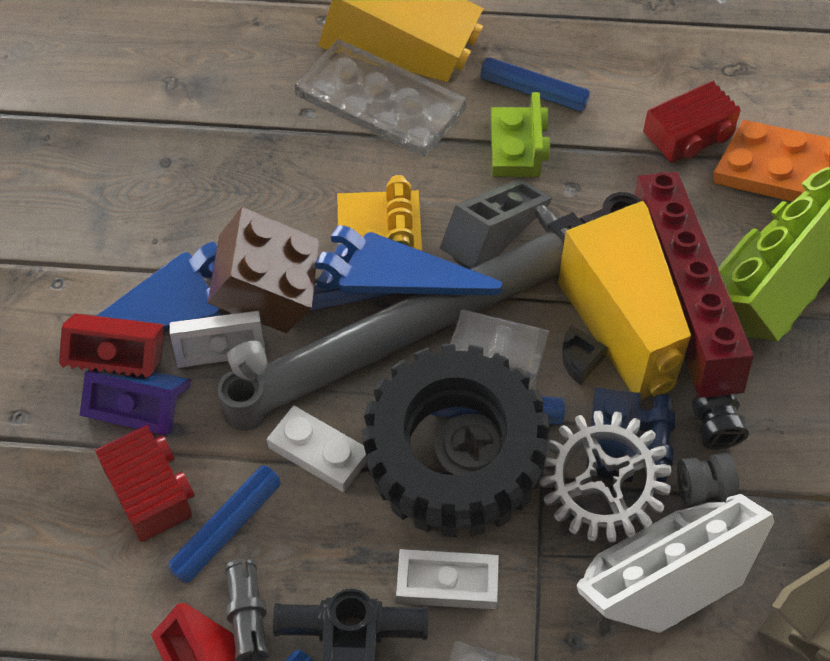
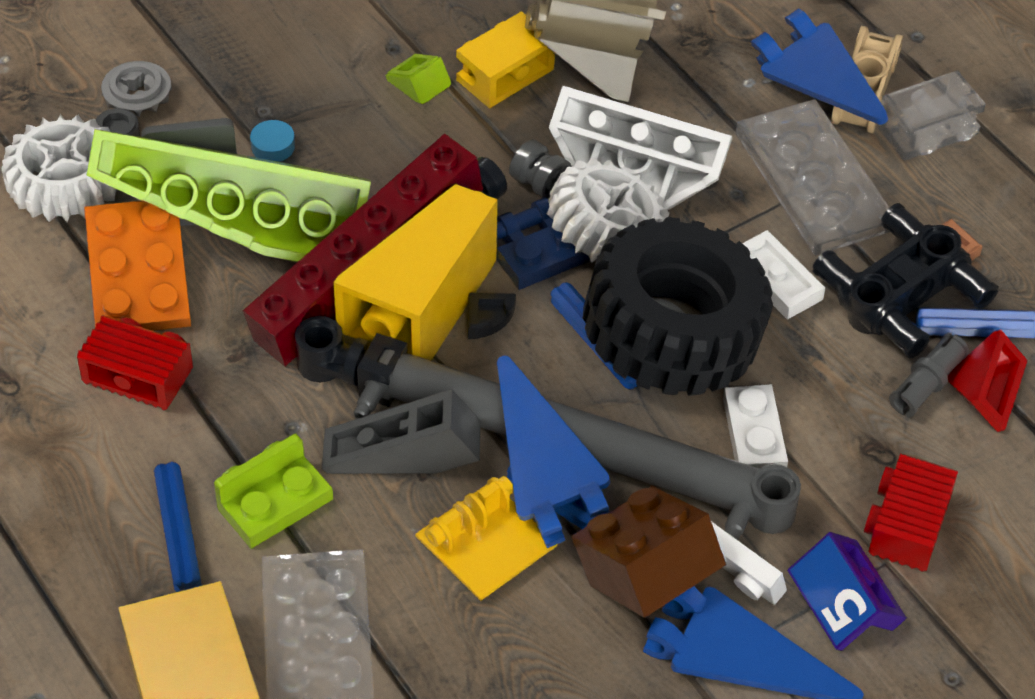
camera: 130 degrees left, 5 degrees down
(111, 344) = (832, 620): red brick -> none
(224, 524) = (880, 442): blue axle -> none
(247, 360) = (762, 487): light grey hinge -> none
(518, 342) = (553, 352): clear brick -> none

